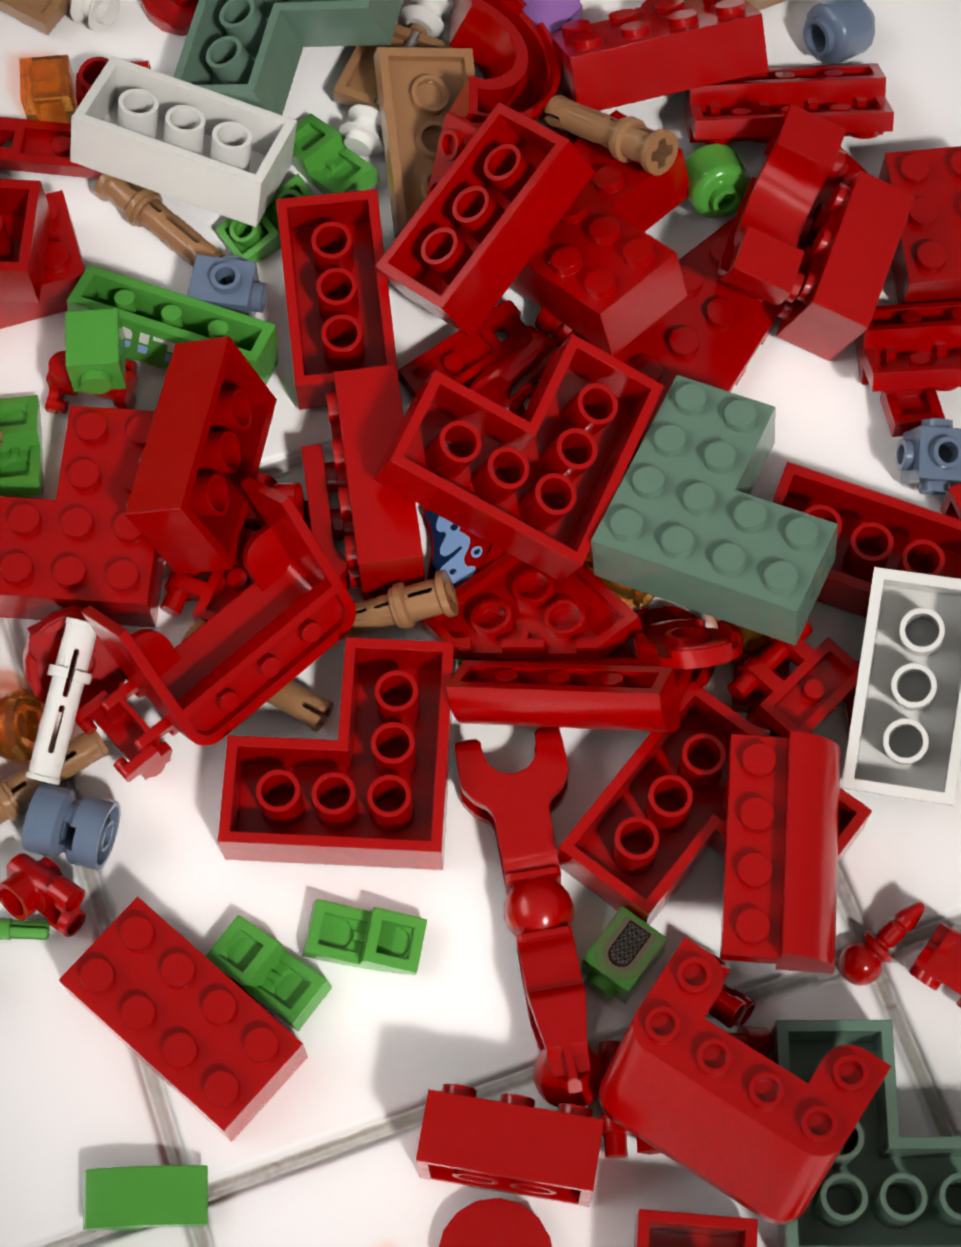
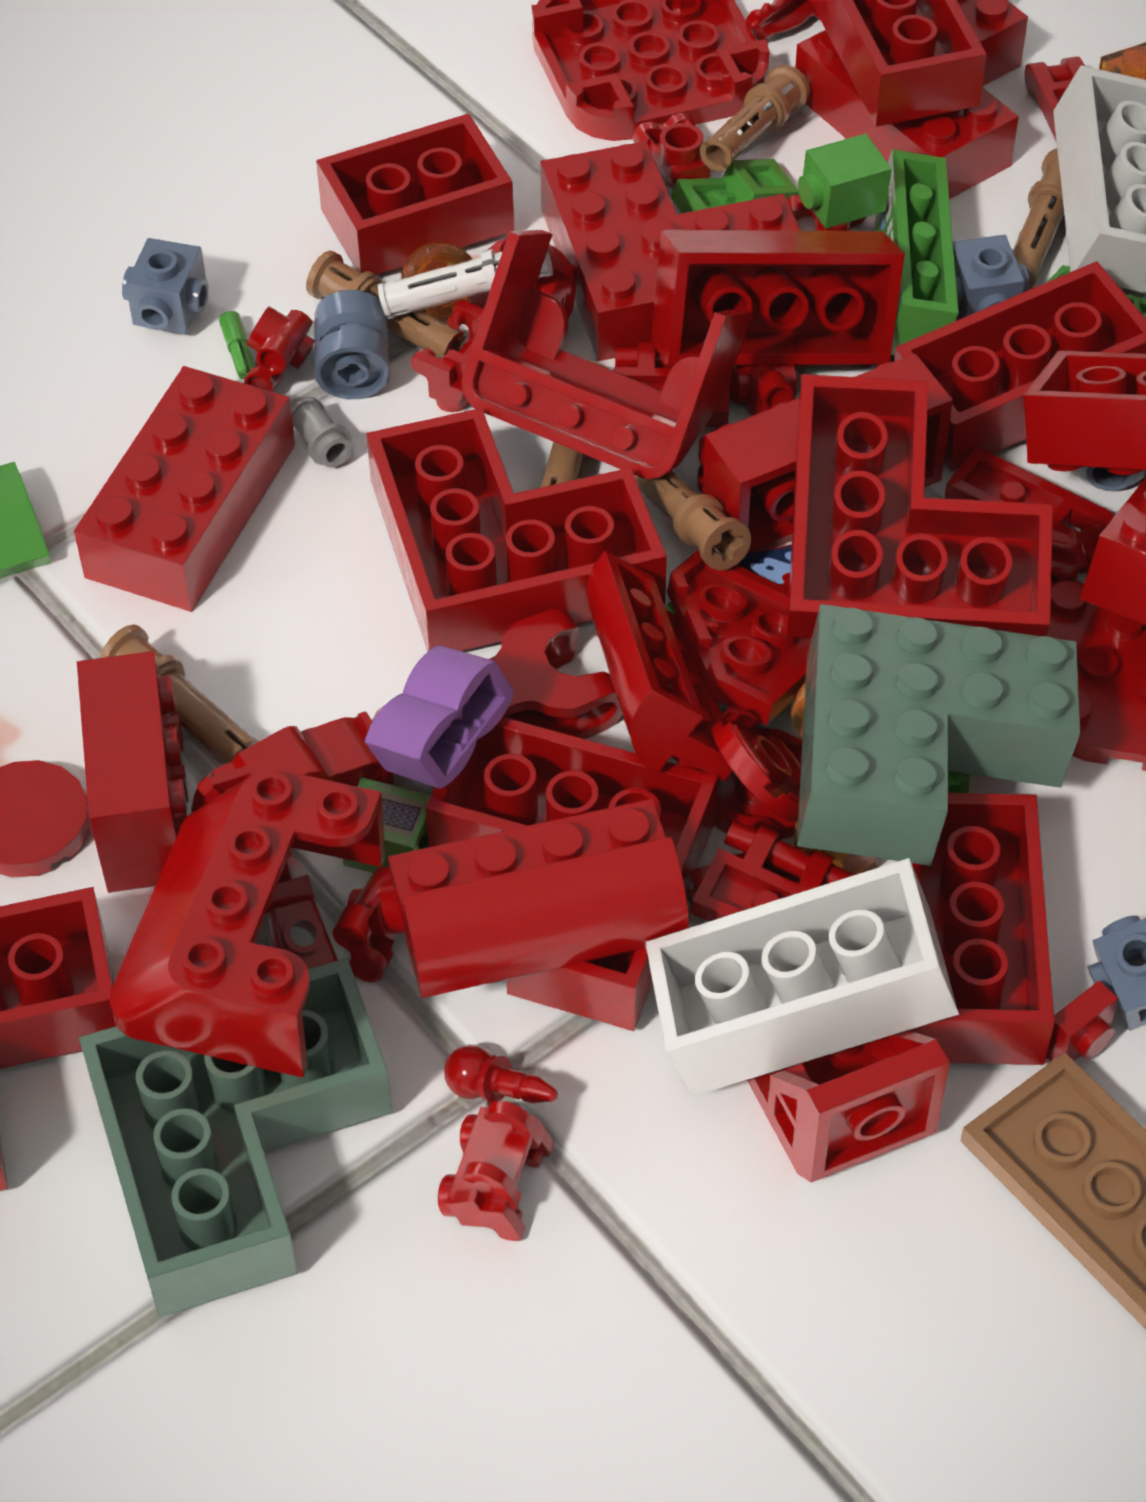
camera: 70 degrees right, 15 degrees down
(157, 884) = (327, 441): none -> light grey pin
(268, 972) = (265, 547): bright green slope -> none
(364, 938) = (329, 610): bright green slope -> none
(394, 1101) = (195, 710): none -> medium nougat pin
(573, 873) = (439, 716): none -> medium lavender brick

